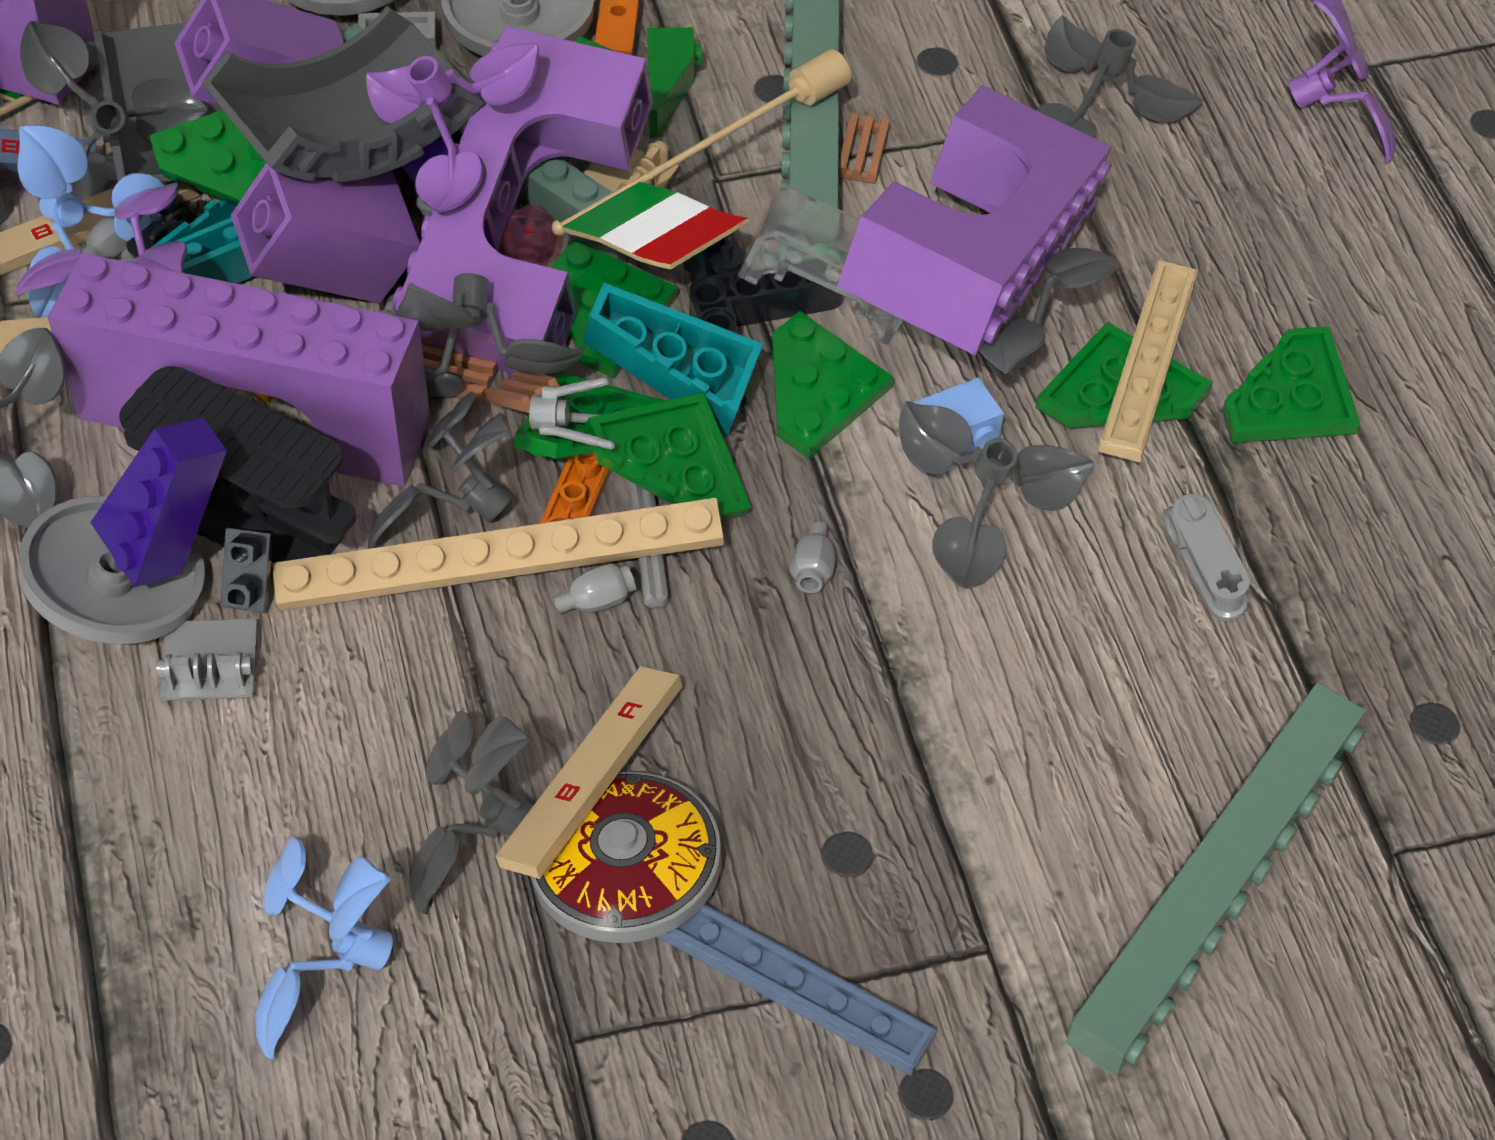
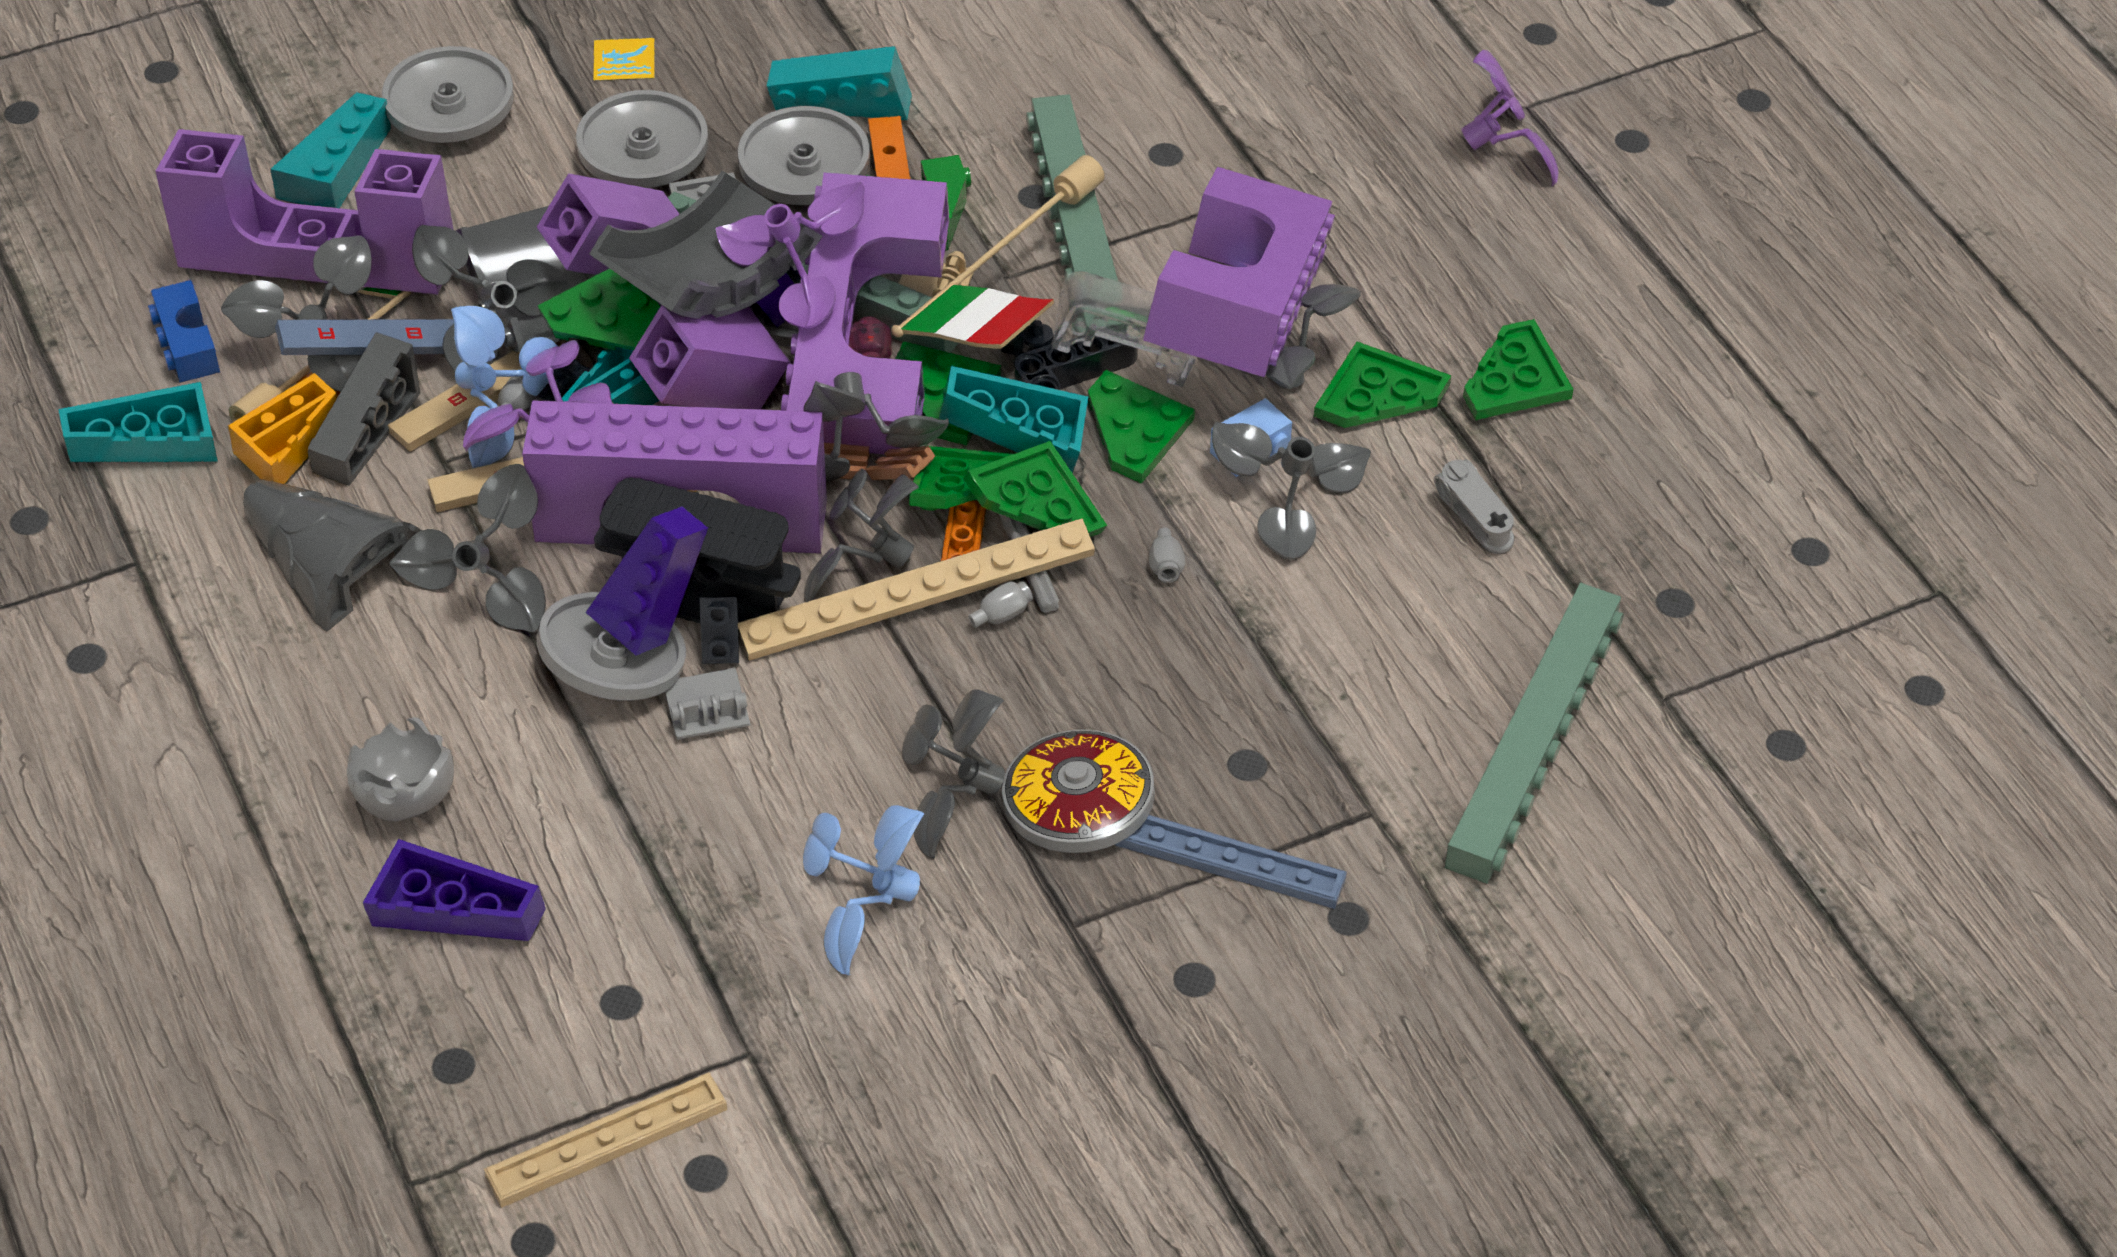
camera: 10 degrees left, 5 degrees down
(549, 412) = (936, 473): light grey plant -> none
(588, 772) = (1036, 733): tan tile -> none
(867, 126) = (1124, 216): nougat tile -> none
(1075, 49) = (1280, 128): dark grey plant -> none
(1148, 361) = (1397, 365): tan tile -> none

